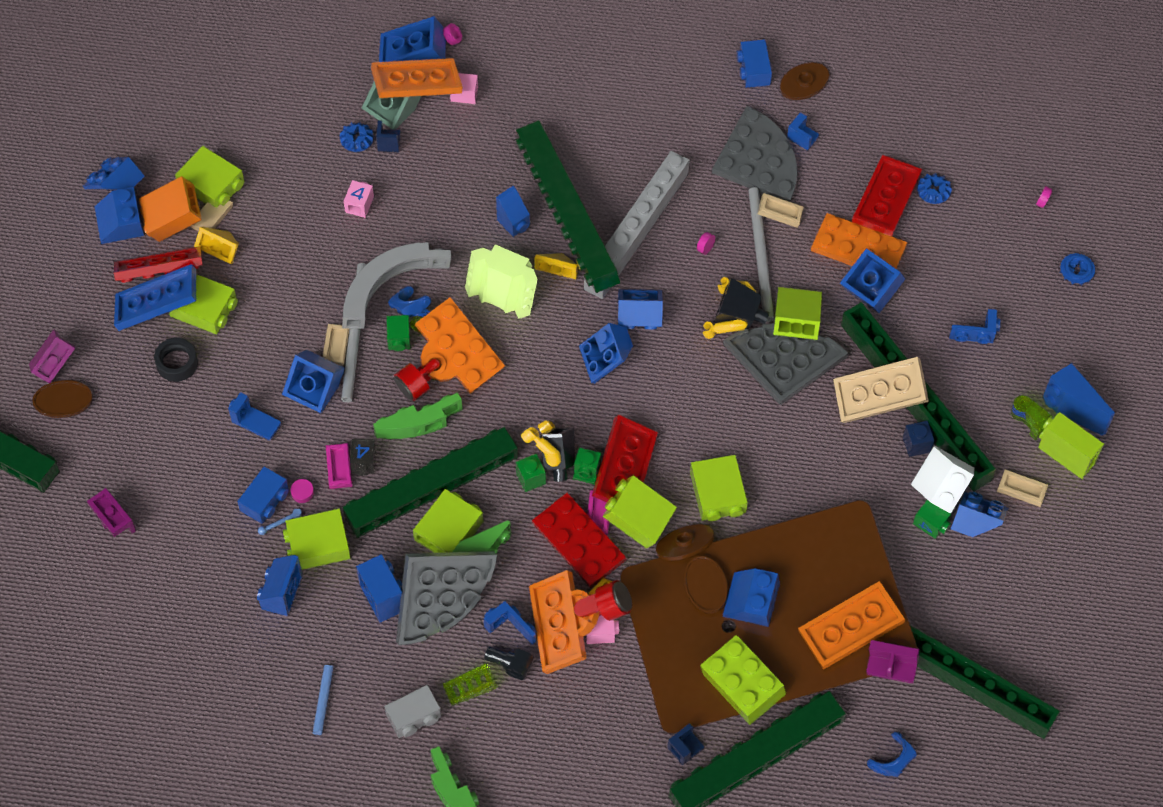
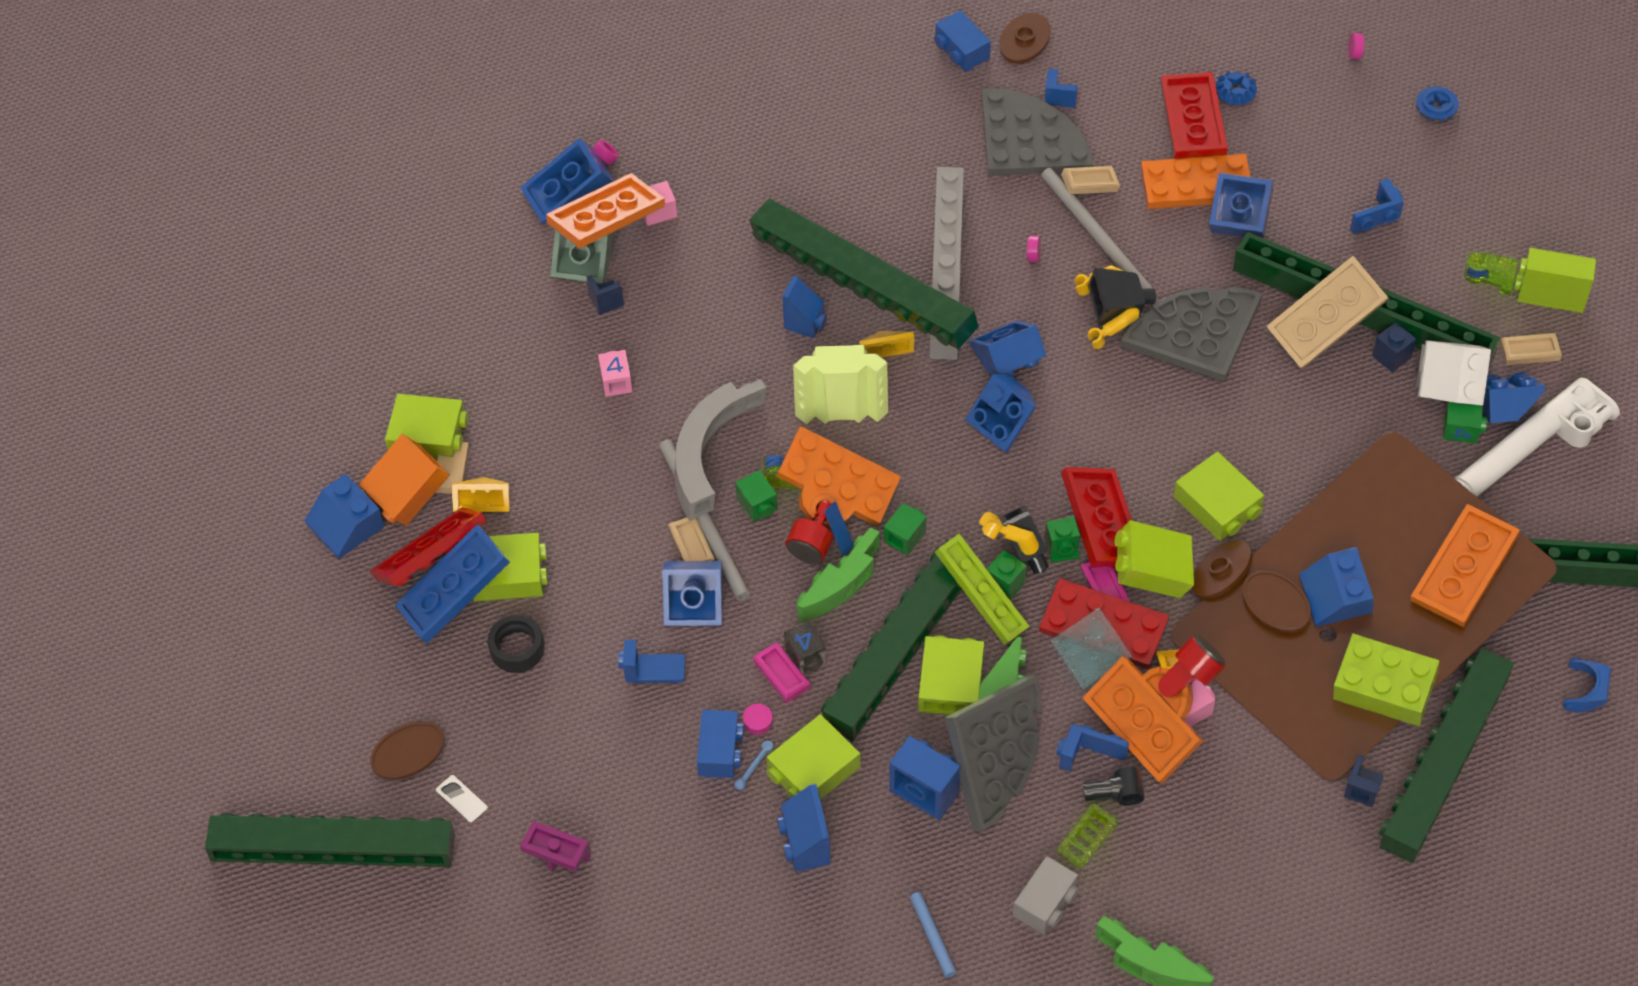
camera: 25 degrees left, 5 degrees down
(51, 357) = (365, 707): magenta panel -> none
(78, 449) = (461, 798): none -> white sticker
(114, 175) = (309, 473): blue slope -> none
(362, 141) = (558, 317): blue gear -> none
(405, 307) = (749, 464): blue helmet -> none
(437, 382) = (839, 528): none -> blue sticker
(484, 405) = (905, 529): none -> green brick
(504, 474) = (981, 589): none -> lime plate
(554, 553) = (1090, 648): none -> clear light blue plate
(797, 313) = (1184, 275): lime brick -> none
(892, 662) = (1533, 581): magenta panel -> none
(1024, 548) = (1573, 409): none -> white piece
(1078, 400) = (1529, 225): blue slope -> none

